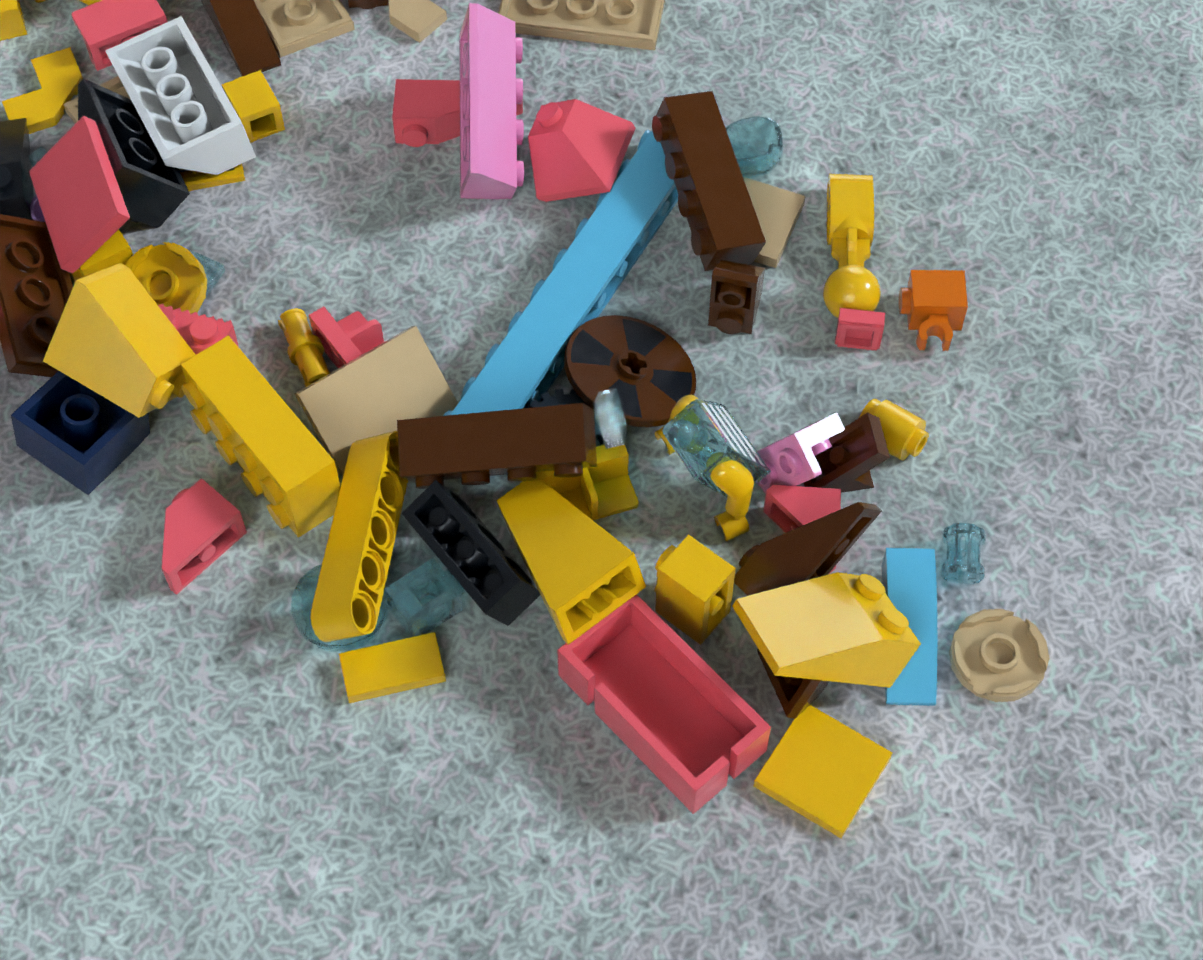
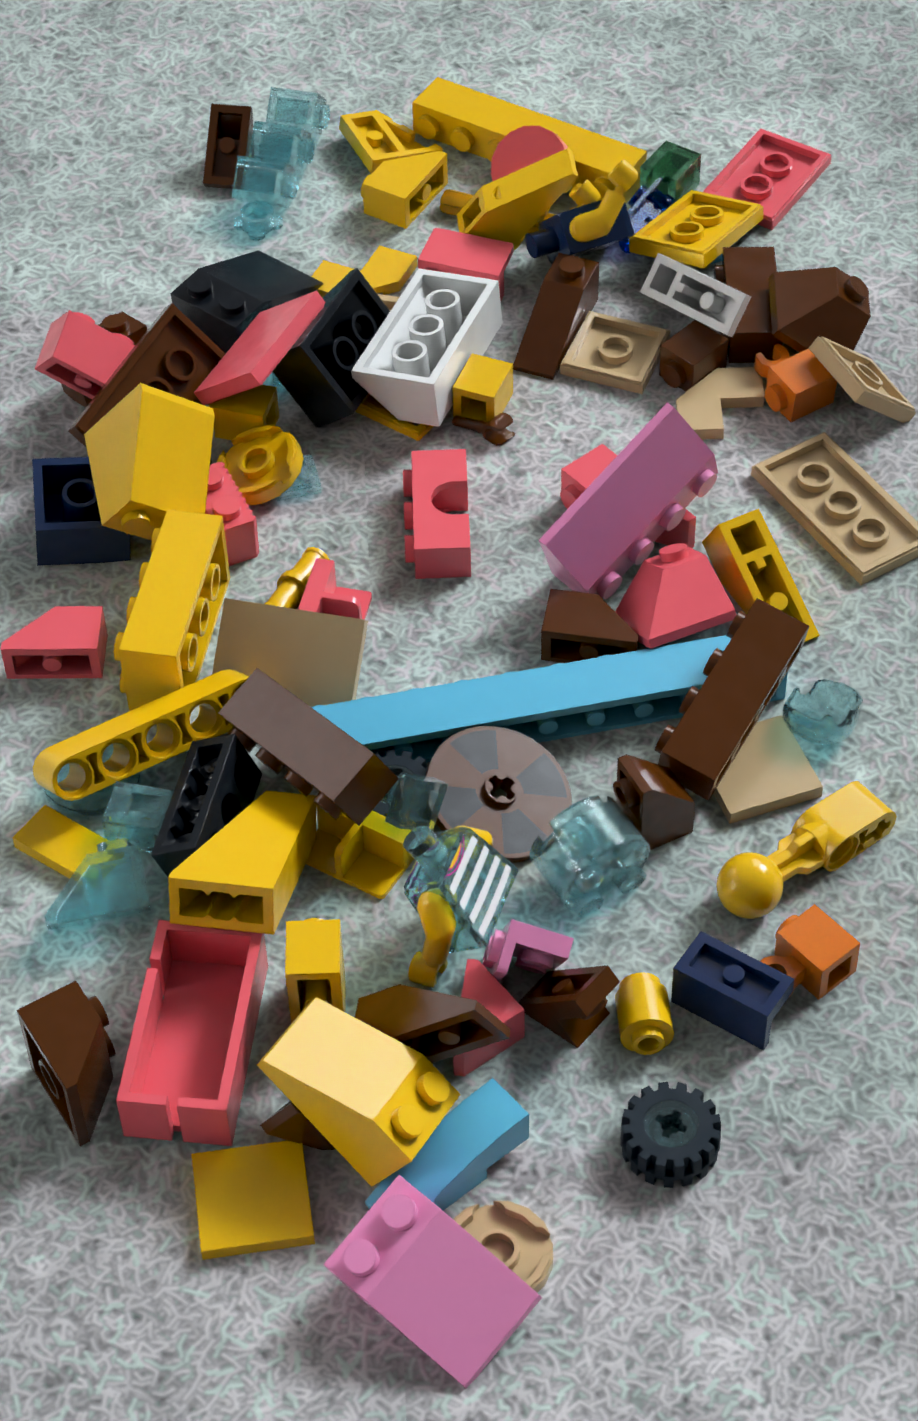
camera: 50 degrees right, 10 degrees down
(293, 131) = (492, 431): none -> reddish brown hand
(360, 237) = (439, 539): none -> coral arch
(468, 669) = (102, 887): none -> clear light blue slope
(541, 216) = (583, 628): none -> reddish brown slope
(589, 79) = (754, 568): none -> yellow slope
(618, 797) = (70, 1054): none -> reddish brown slope
(748, 356) = (591, 854): none -> clear light blue brick
(859, 329) = (720, 916): coral tile -> none
(929, 365) = (730, 989): none -> dark blue panel
(974, 539) = (568, 1153): clear light blue bush -> none
(995, 502) = (676, 1155): none -> black wheel
(1002, 706) = (432, 1281): none -> bright pink slope

